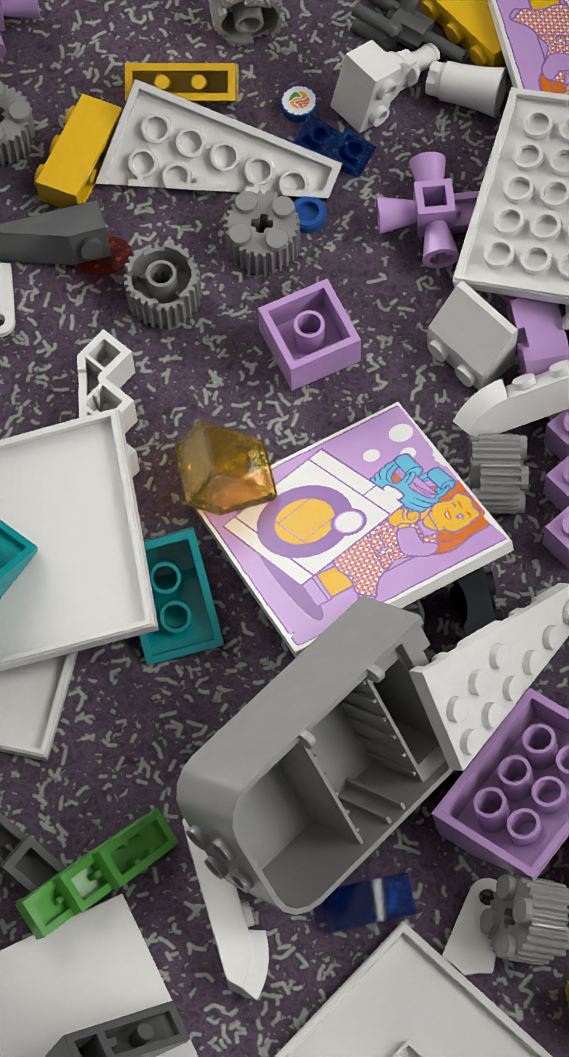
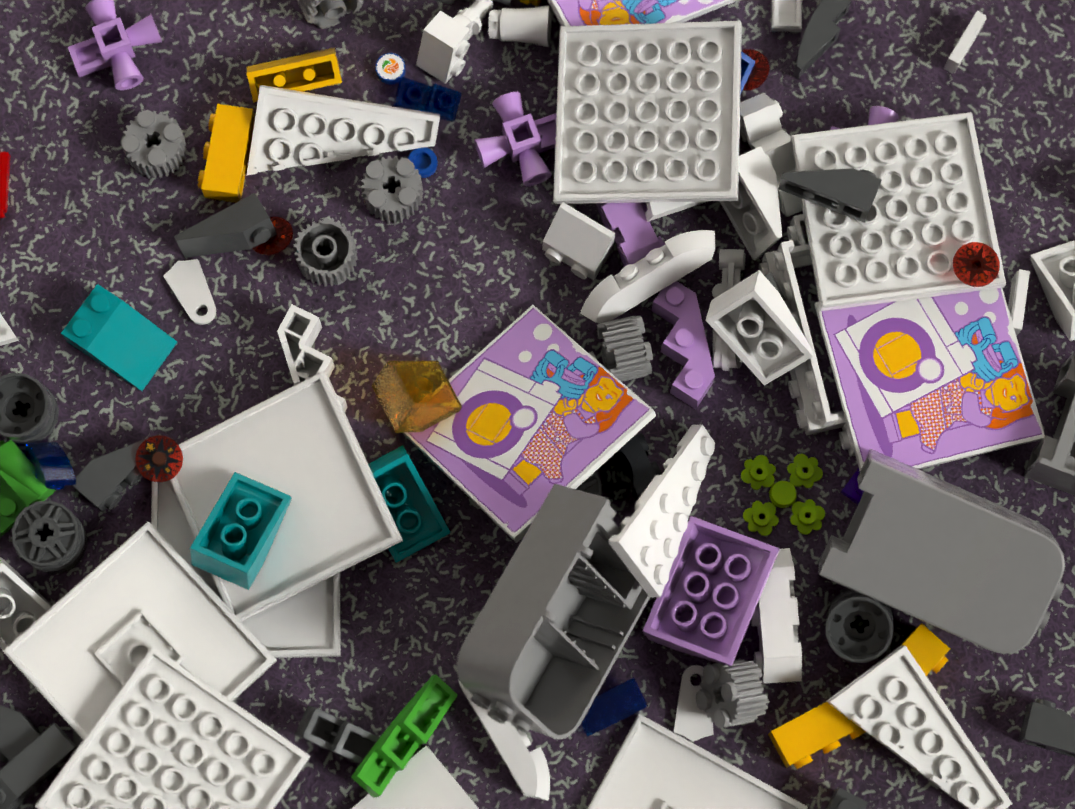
camera: 20 degrees left, 10 degrees up
(309, 334) = (451, 267): lavender brick -> none

